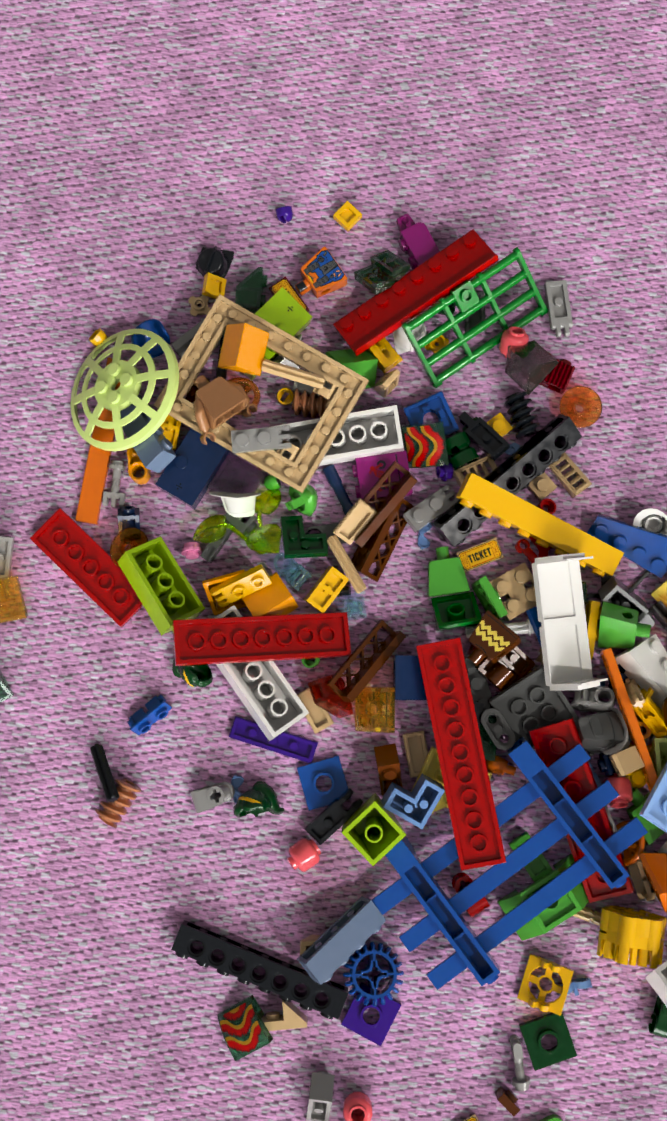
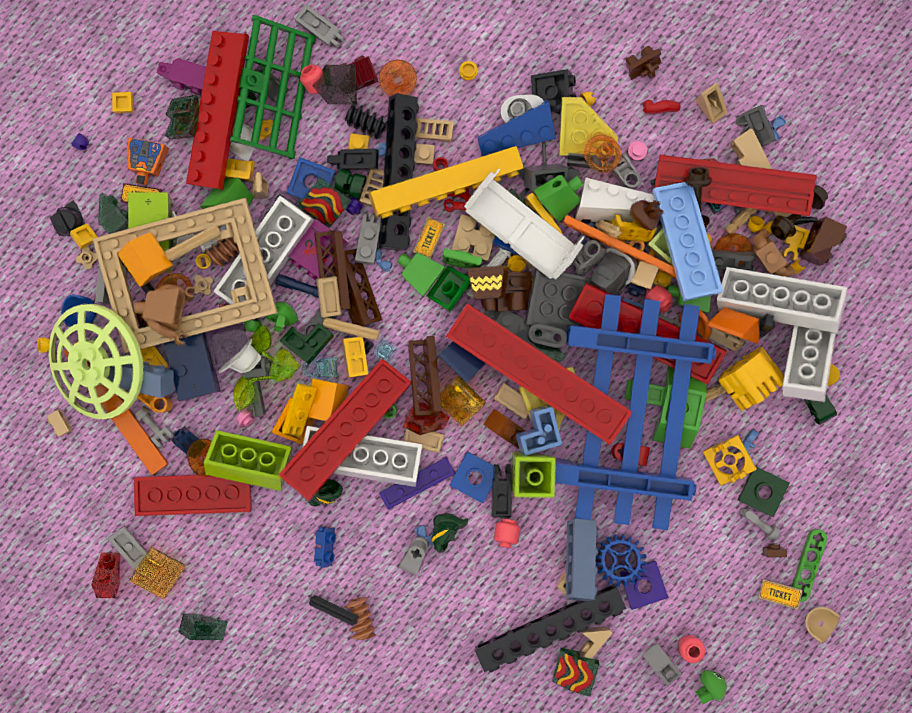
camera: 45 degrees left, 5 degrees up
(47, 409) = (59, 423): none -> tan piece
(260, 439) = (215, 306): light grey hinge -> none
(264, 420) = (207, 285): none -> tan plate
(500, 766) = (572, 357): orange cylinder -> none
(530, 645) = (516, 263): none -> yellow plate
(643, 456) = (468, 70): none -> yellow plate

